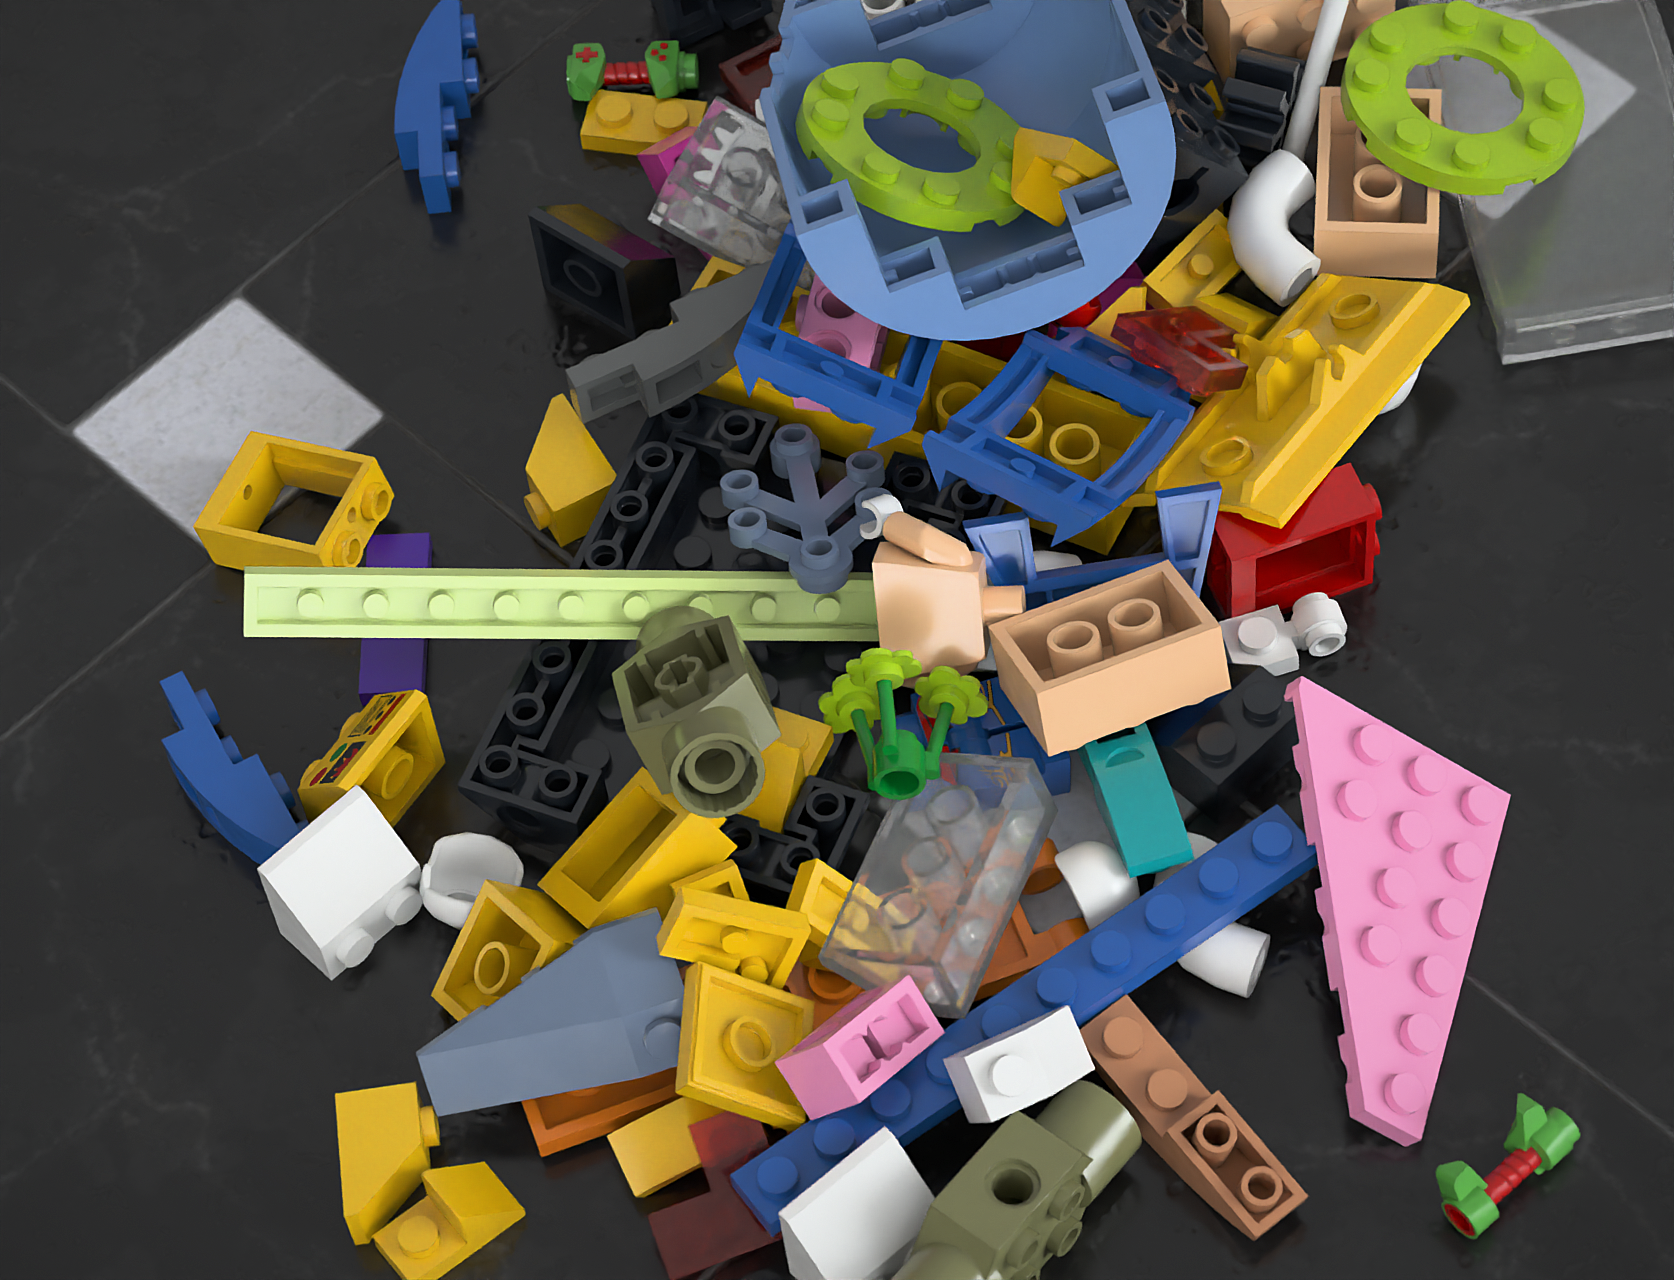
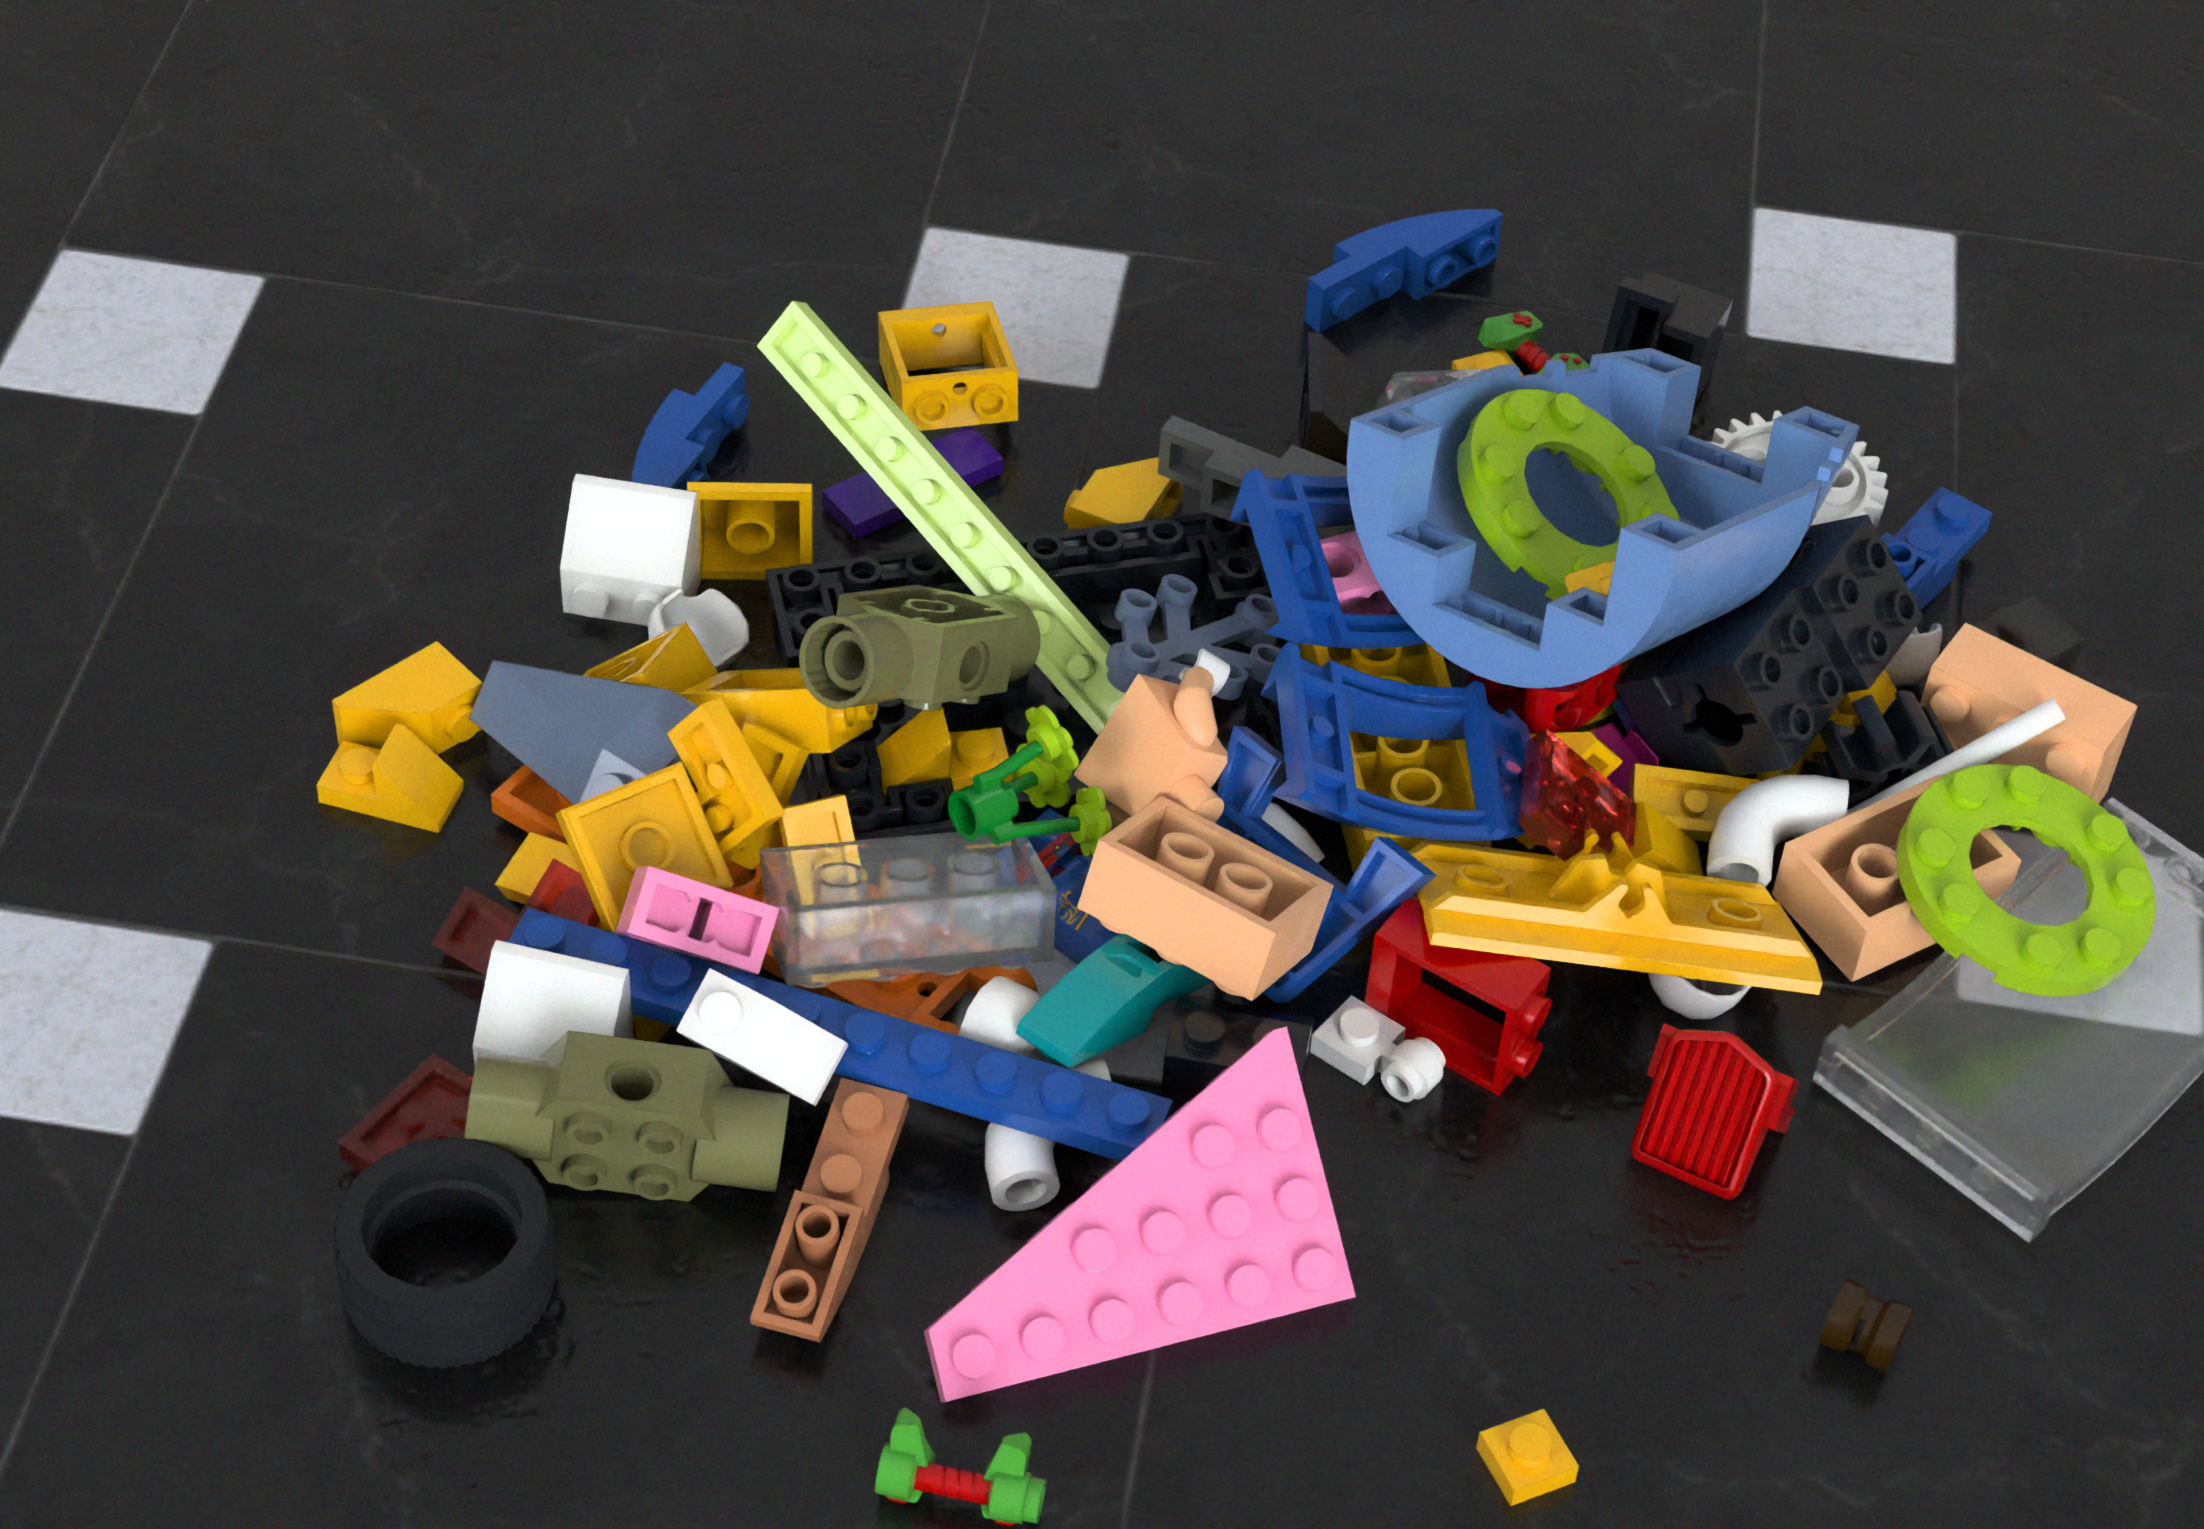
camera: 45 degrees right, 10 degrees down
(1516, 447) = (1709, 1109): none -> red piece

